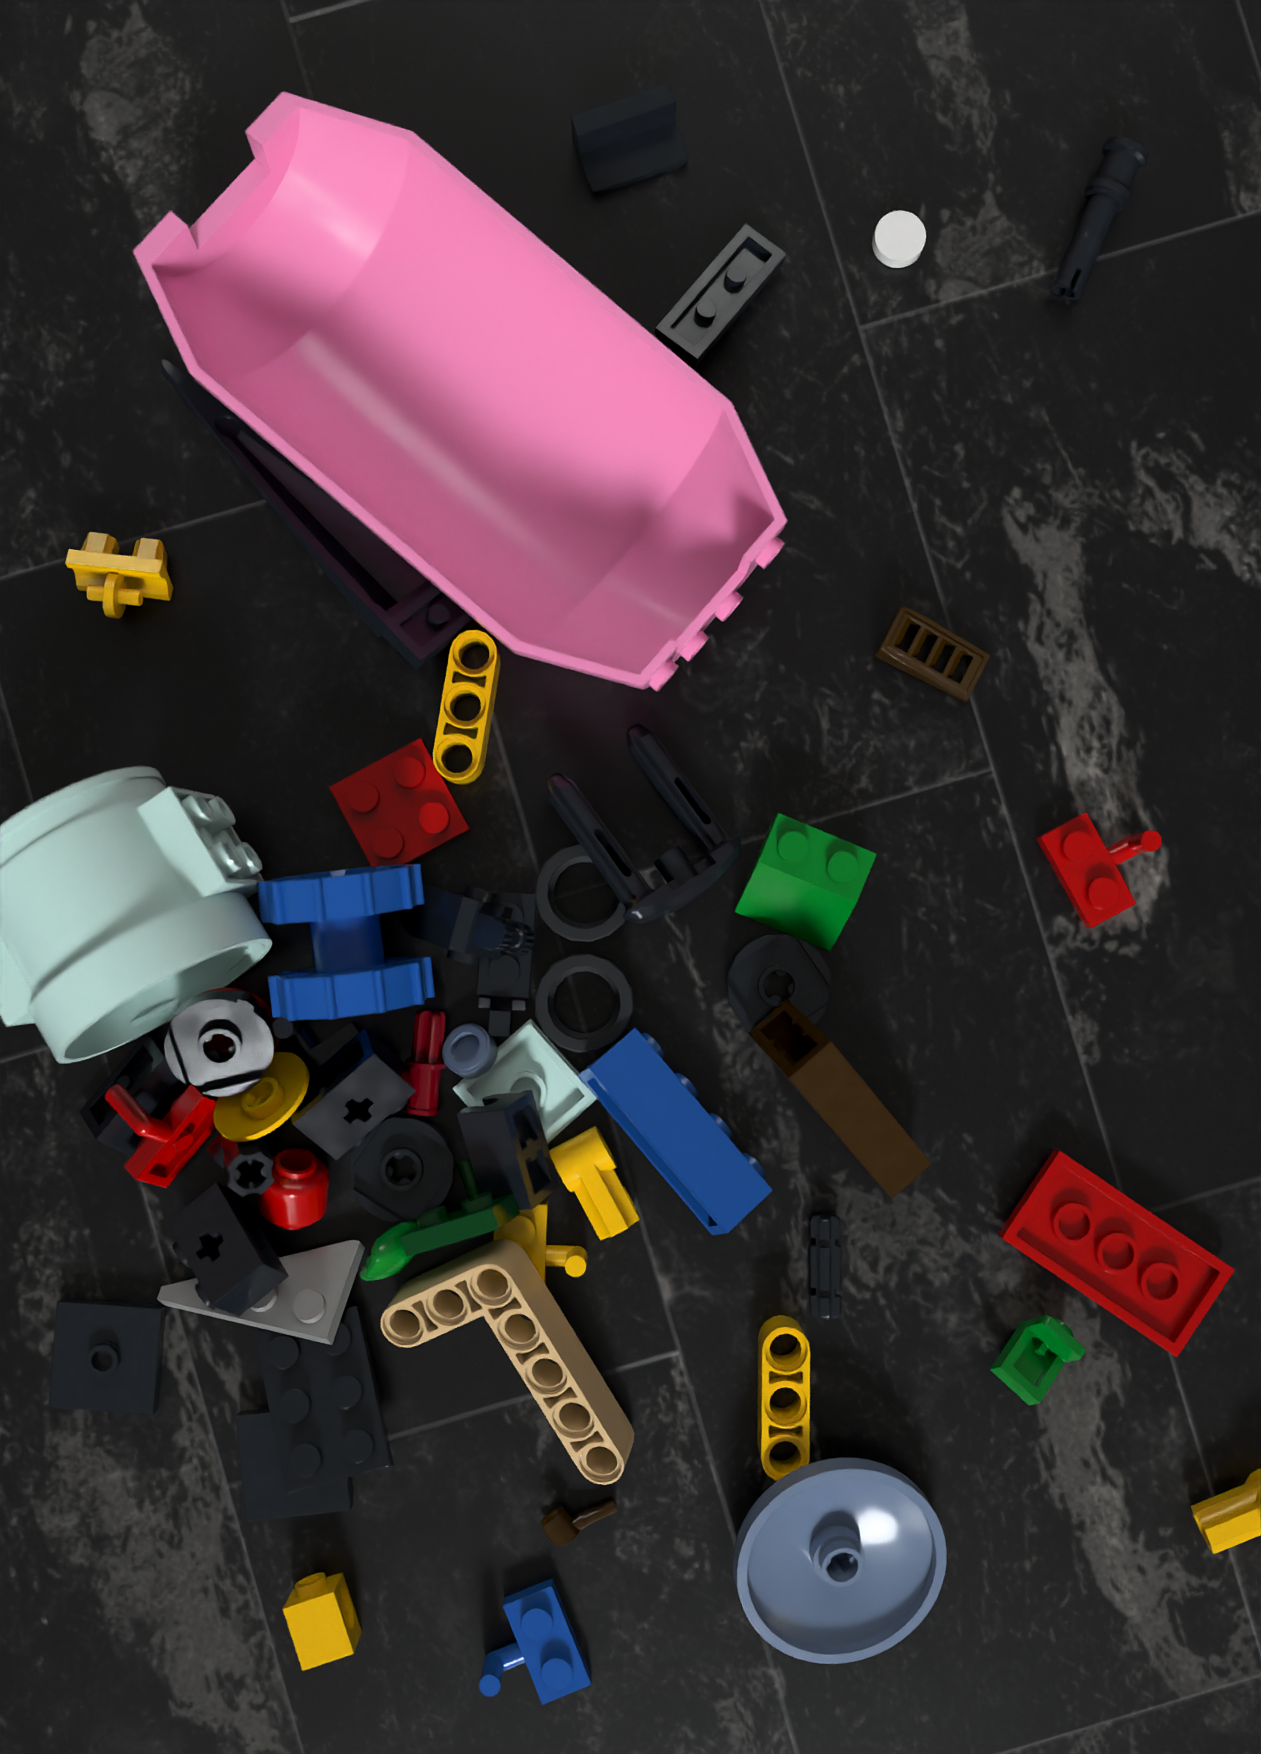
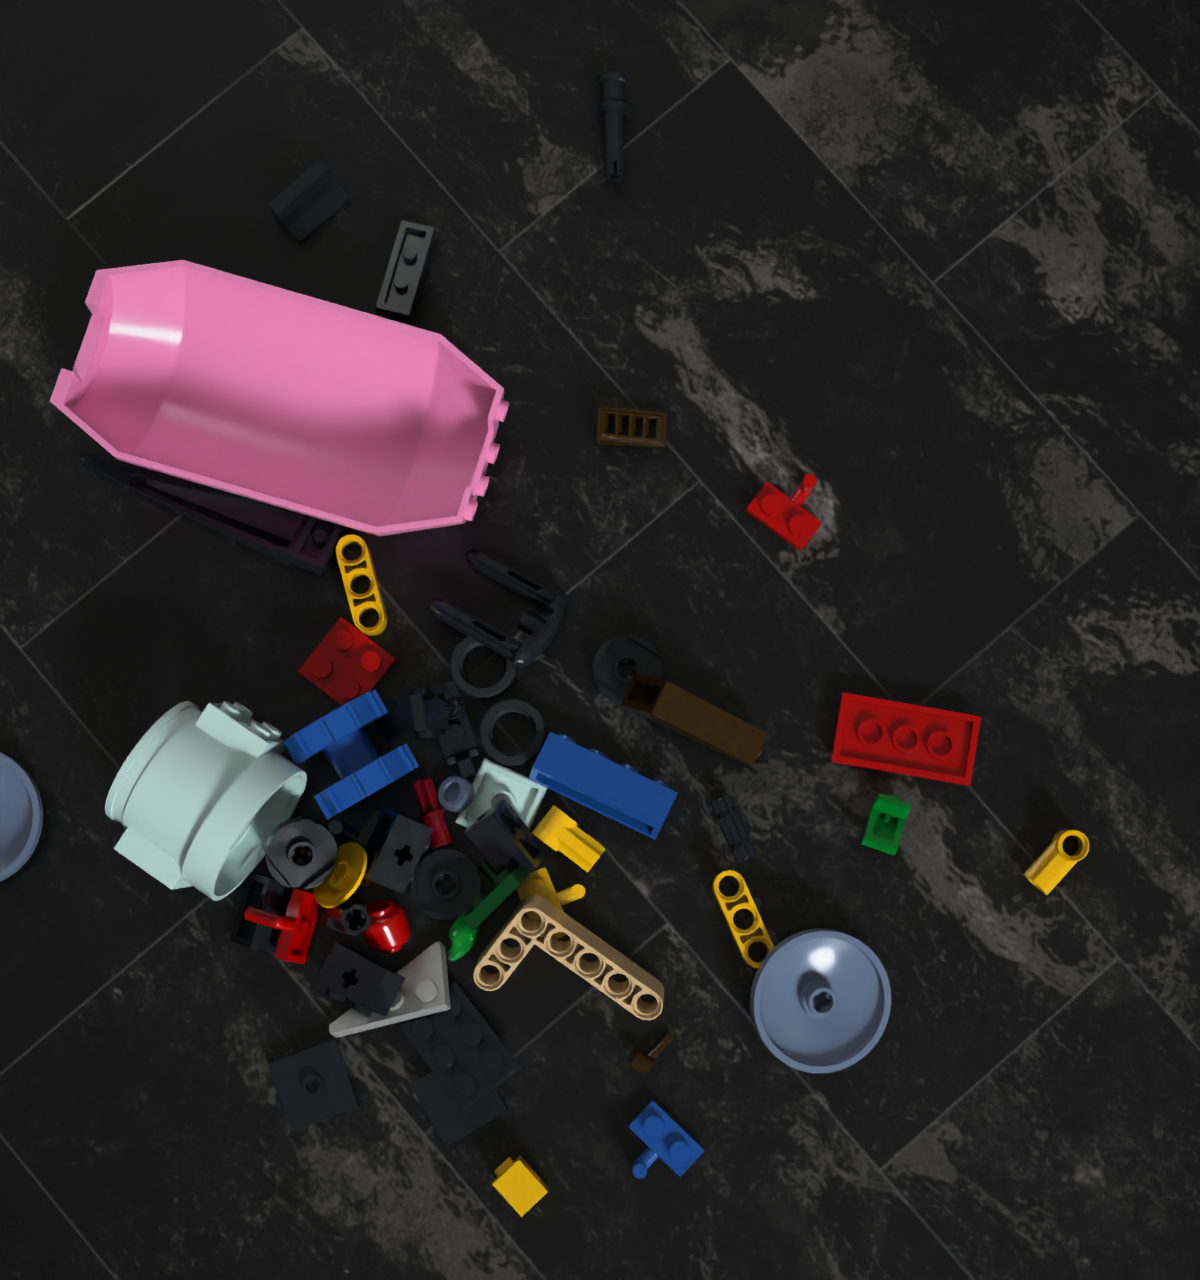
camera: 20 degrees left, 5 degrees down
(120, 578) = (111, 601): yellow hips -> none
(804, 882) = (614, 599): green slope -> none
(899, 239) = (499, 188): white tile -> none

